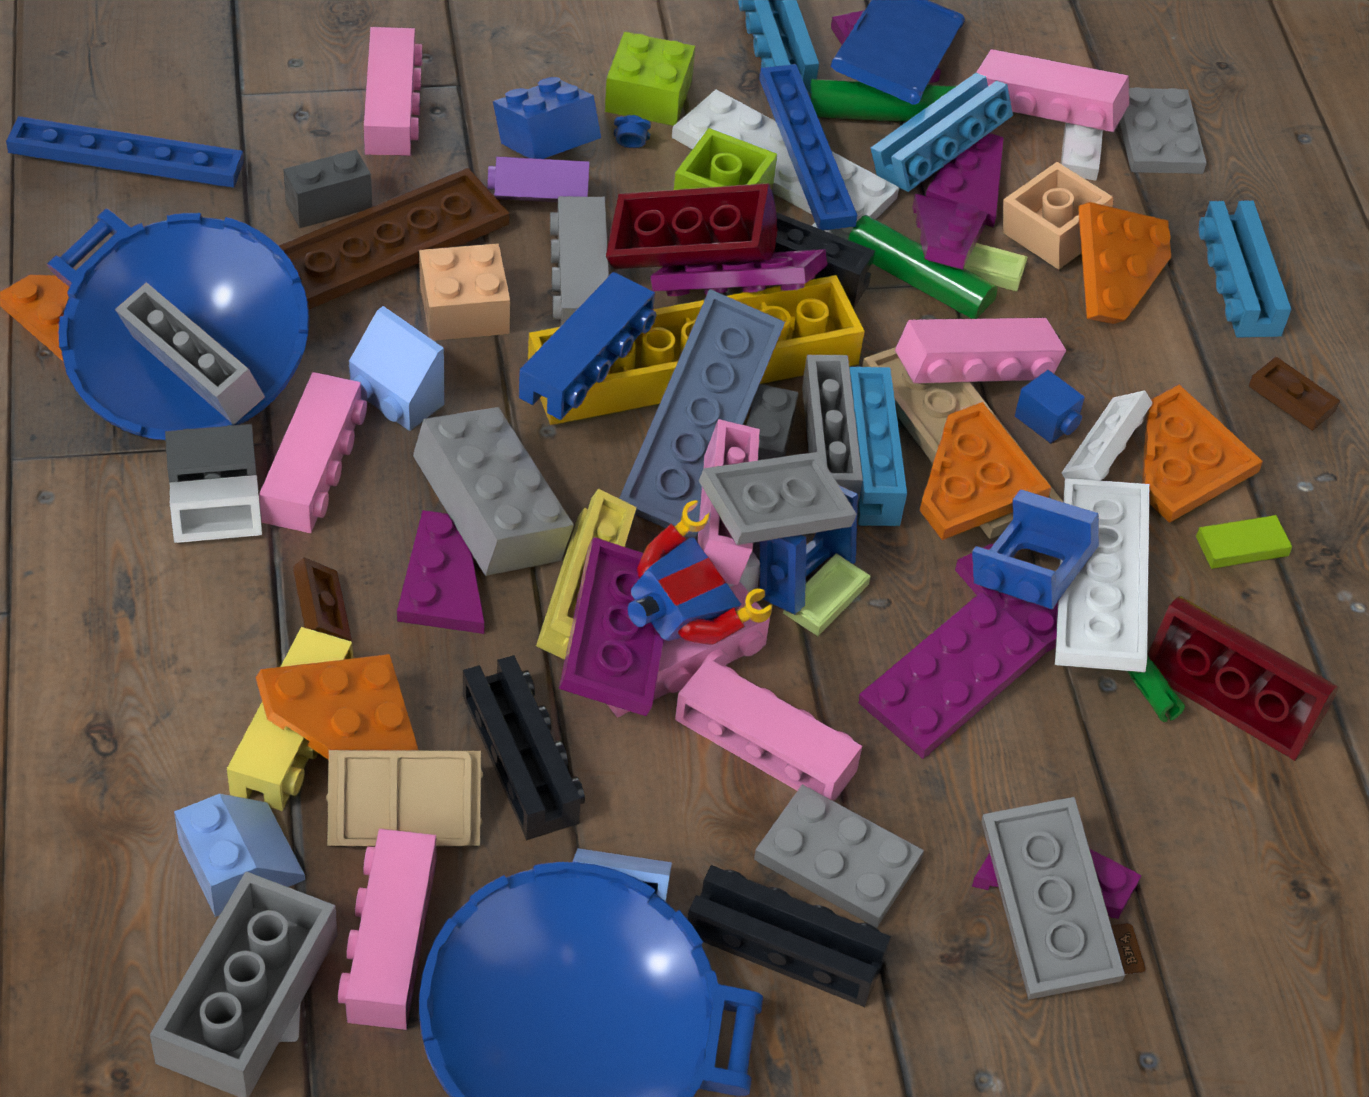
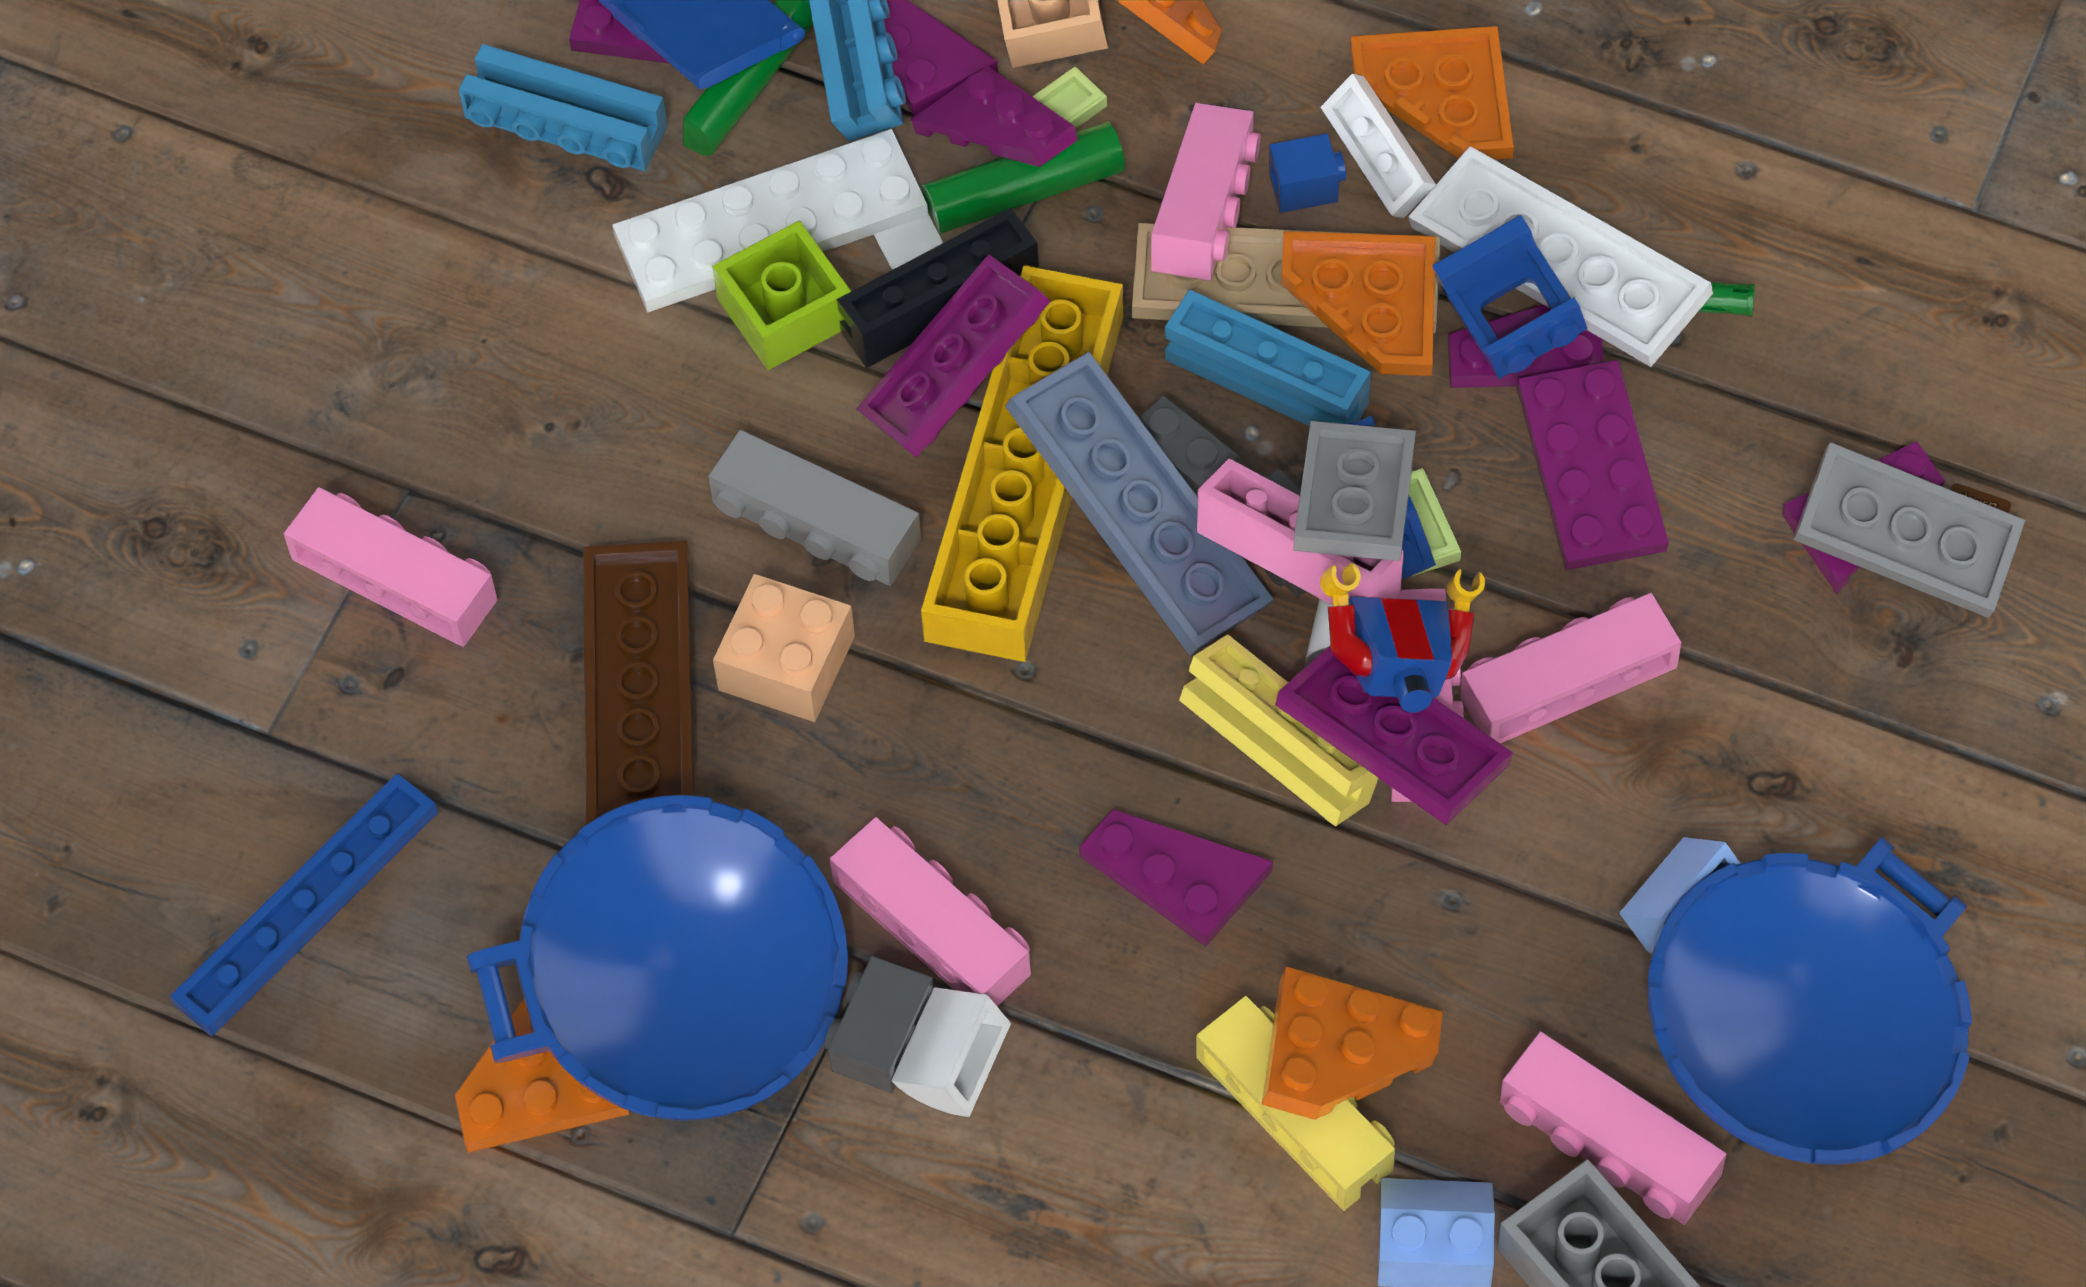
camera: 50 degrees left, 10 degrees up
(190, 353) = (742, 967): light grey brick -> none
(321, 599) = (1138, 1000): reddish brown plate -> none
(328, 188) = (522, 711): dark grey brick -> none
(399, 370) = (877, 770): light blue slope -> none
(404, 792) = (1466, 1043): tan piece -> none
(492, 490) = (1107, 762): light grey brick -> none
(522, 748) = (1456, 903): black brick -> none
(538, 179) = (658, 481): medium lavender brick -> none
(546, 118) = (571, 424): blue brick -> none
(587, 345) = (997, 559): blue brick -> none
(631, 131) = (627, 347): blue plate -> none
(649, 78) = (557, 283): lime brick -> none
(693, 227) = (870, 366): dark red brick -> none
(789, 935) = (1816, 779): black brick -> none
(808, 148) = (790, 183): blue plate -> none
(832, 418) = (1222, 394): light grey brick -> none
(838, 855) = (1741, 688): light grey plate -> none
(1240, 678) = (1757, 214): dark red brick -> none
(1243, 541) = (1576, 108): lime tile -> none

